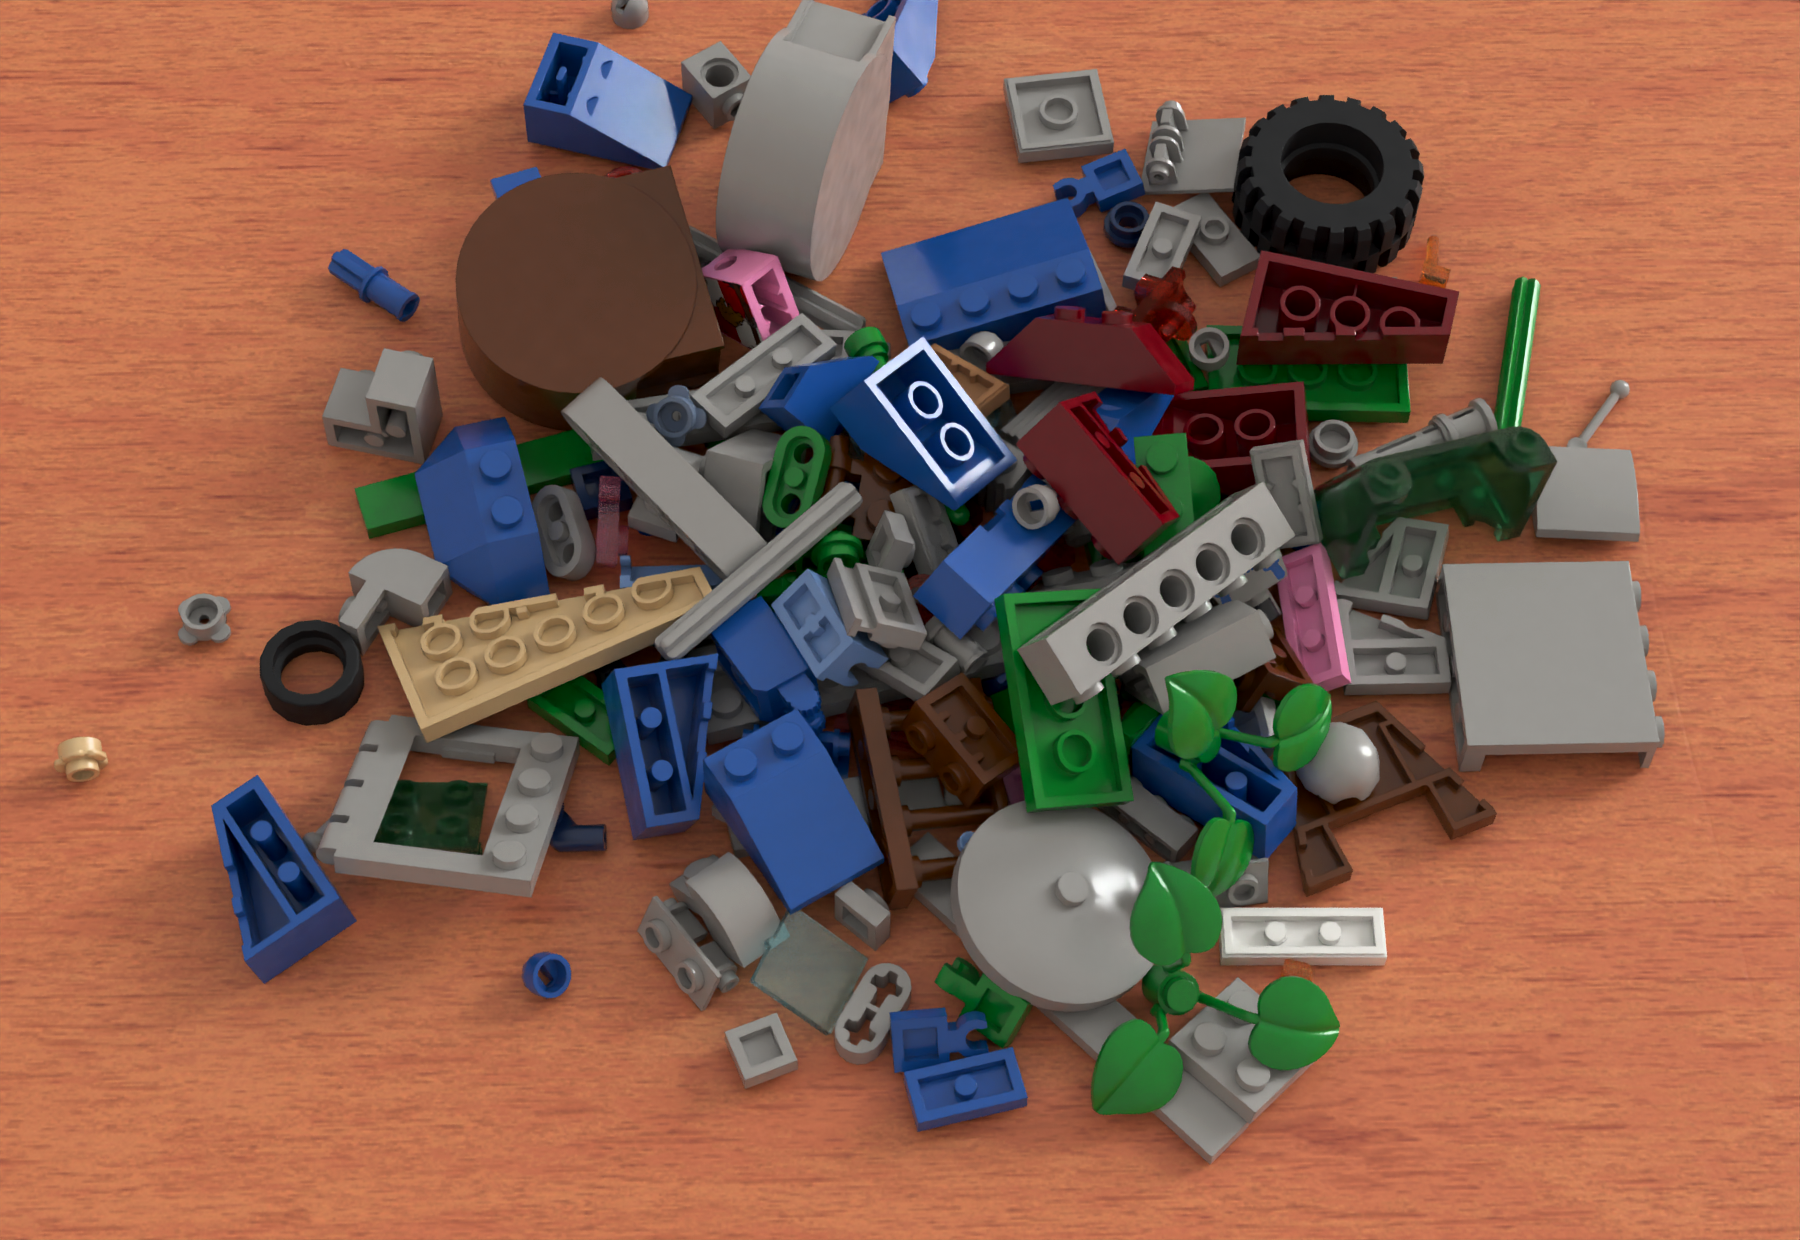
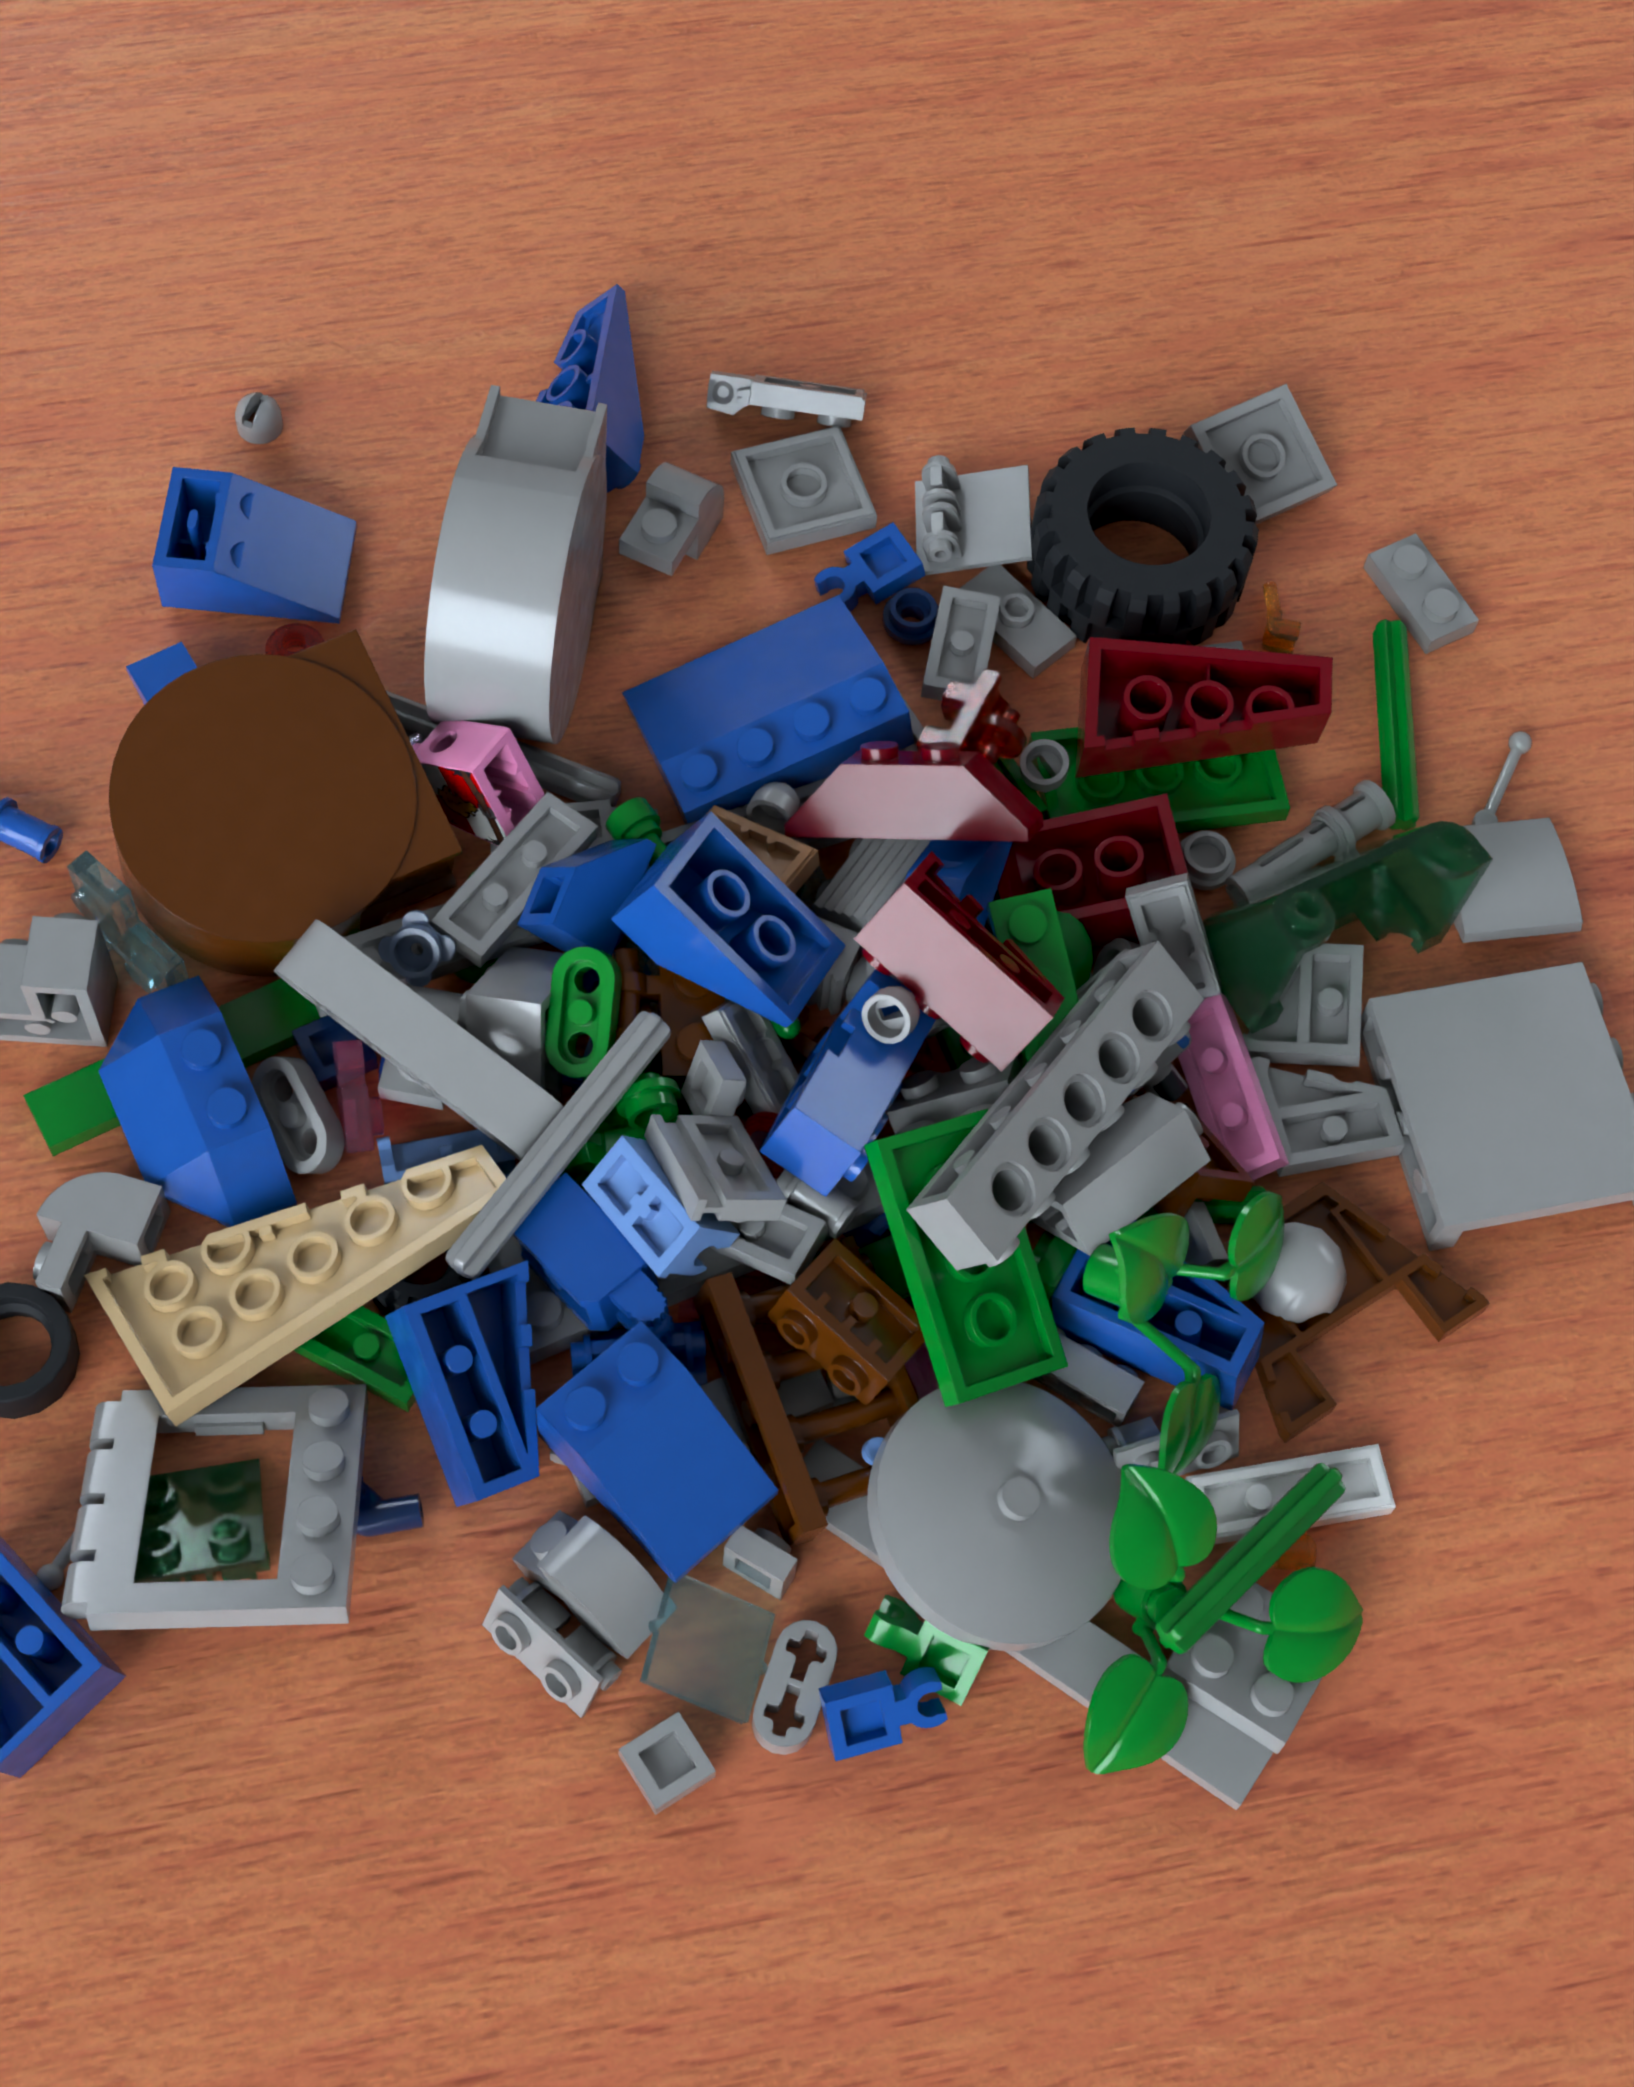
camera: 15 degrees left, 5 degrees up
(442, 343) = (106, 899): none -> clear light blue plate
(553, 967) = (388, 1695): blue hinge -> none
(715, 82) = (382, 485): light grey brick -> none
(947, 122) = (673, 519): none -> light grey brick
(965, 1089) = (926, 1769): blue plate -> none
(1055, 42) = (784, 396): none -> light grey hinge
(1253, 968) = (1249, 1558): none -> green axle
(1449, 134) = (1269, 451): none -> light grey hinge
(1560, 261) = (1420, 593): none -> light grey plate

